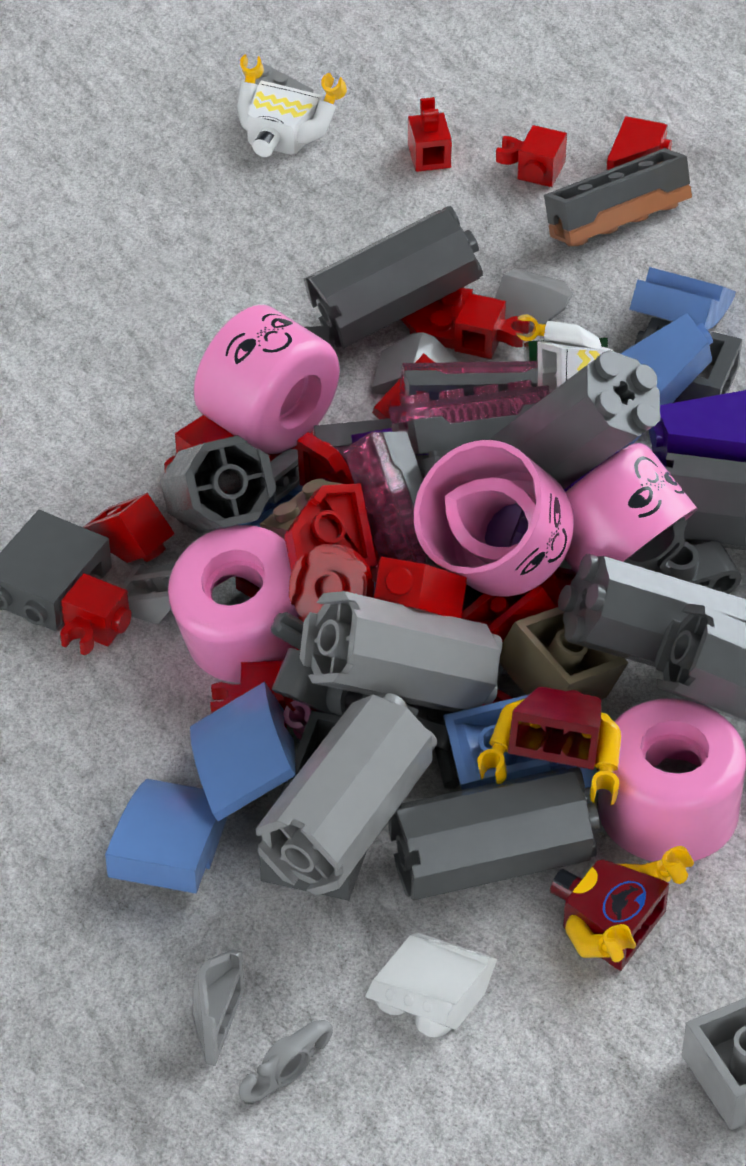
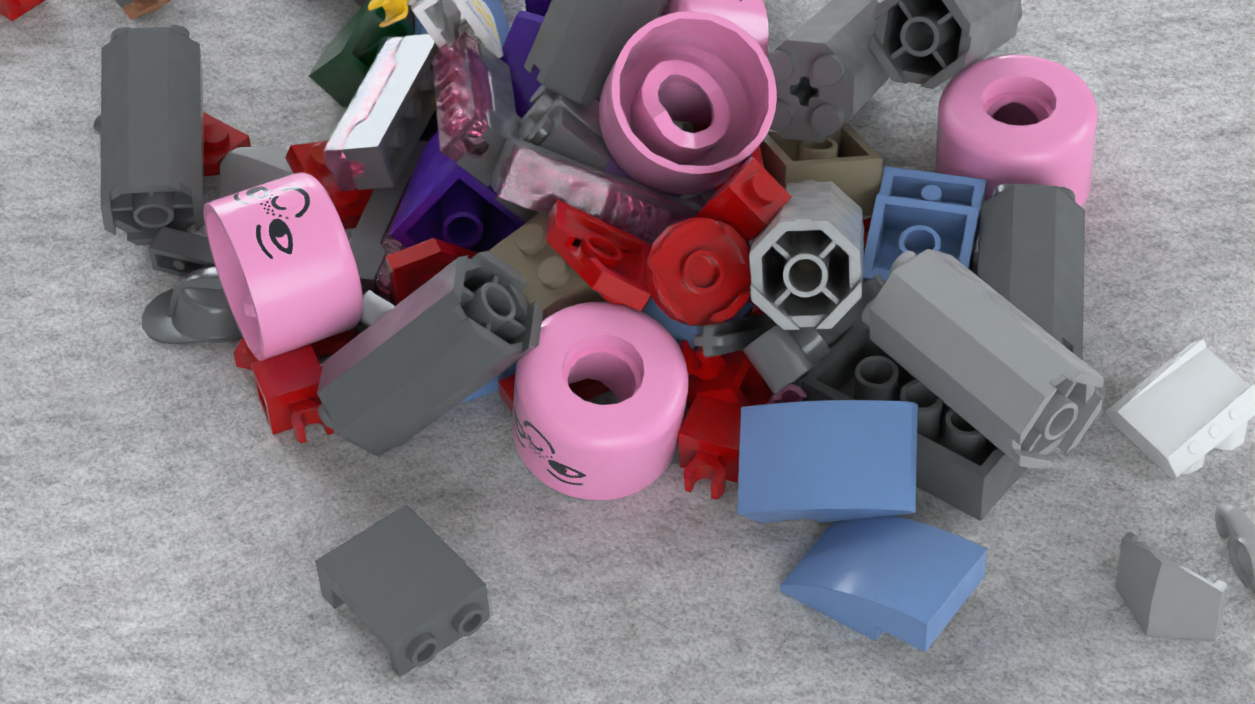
camera: 65 degrees left, 0 degrees up
(93, 613) = (506, 559): red brick -> none
(133, 528) = (377, 485): red slope -> none
(149, 592) = (492, 490): light grey slope -> none
(484, 325) = (253, 100): red brick -> none
(533, 295) = (234, 61): light grey slope -> none
(557, 729) = (971, 167): dark red torso -> none
(617, 904) = (1152, 241): torso -> none

